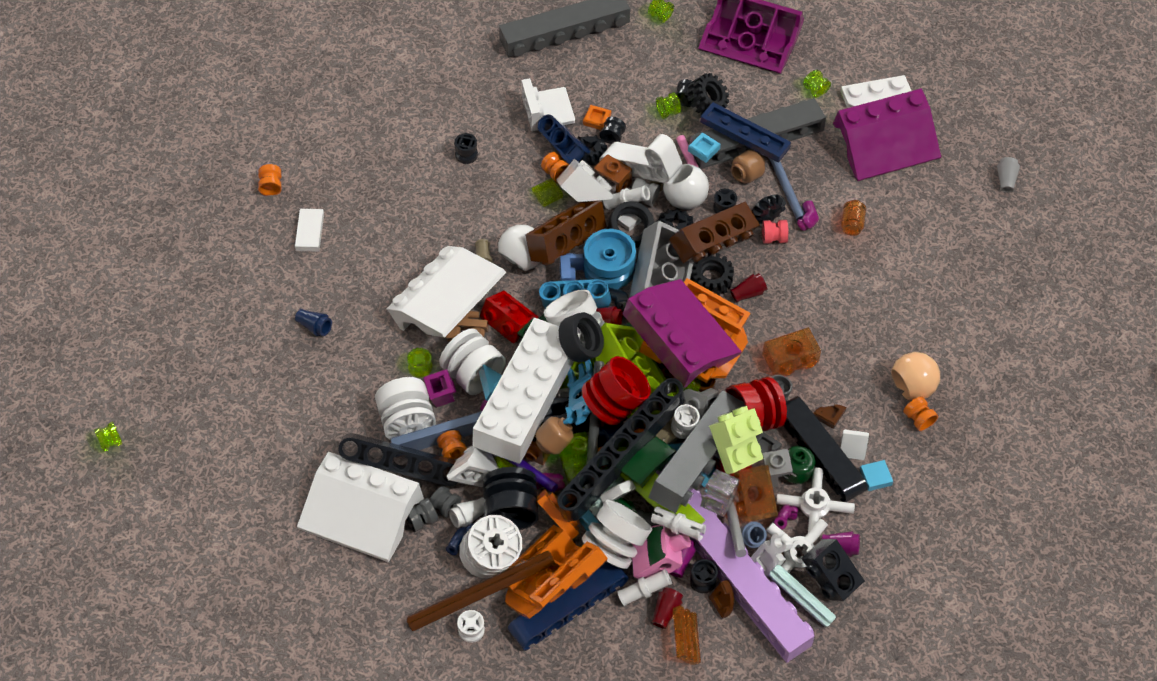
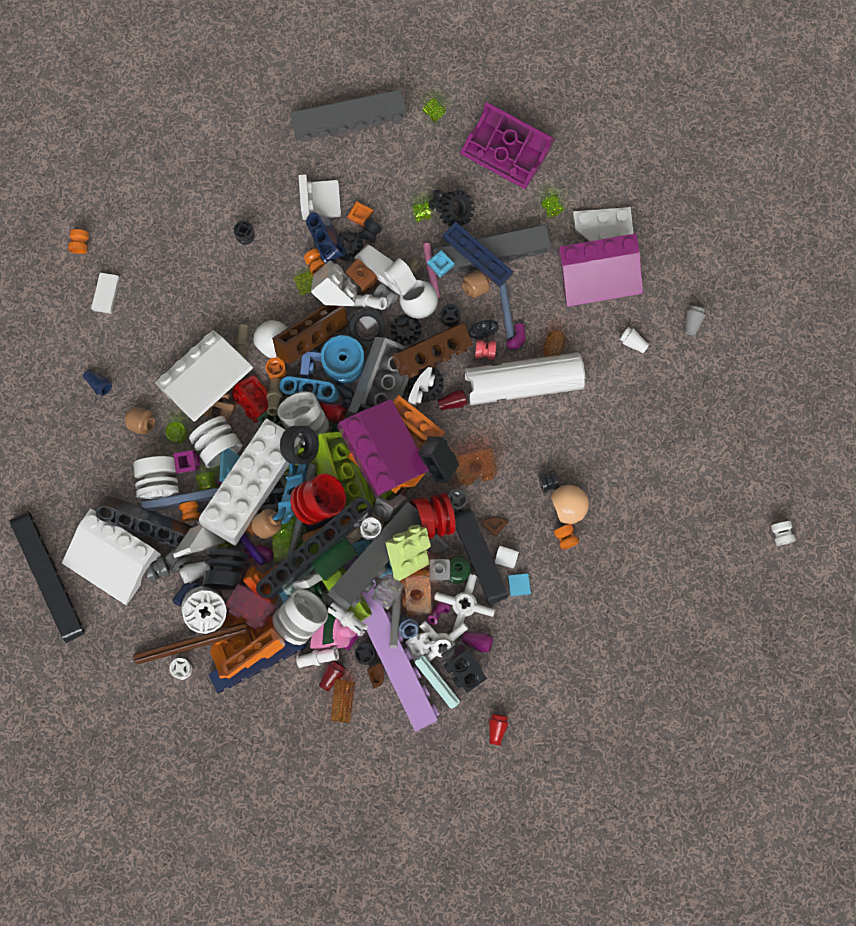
camera: 10 degrees right, 20 degrees up
(283, 543) = (46, 577): none -> black beam
(373, 354) = (139, 420): none -> medium nougat head
(465, 406) = (206, 481): none -> clear neon green wheel
(530, 280) = (274, 366): none -> orange wheel
(534, 304) = (274, 396): none -> dark tan pin
(552, 528) = (250, 606): none -> clear pink brick
(711, 268) = (423, 382): none -> white slope
(750, 337) = (438, 458): none -> black brick
(830, 251) = (526, 378): none -> white piece
(883, 357) = (548, 481): none -> black wheel
(891, 639) = (497, 728): none -> red cone
(944, 202) = (632, 339): none -> white cone

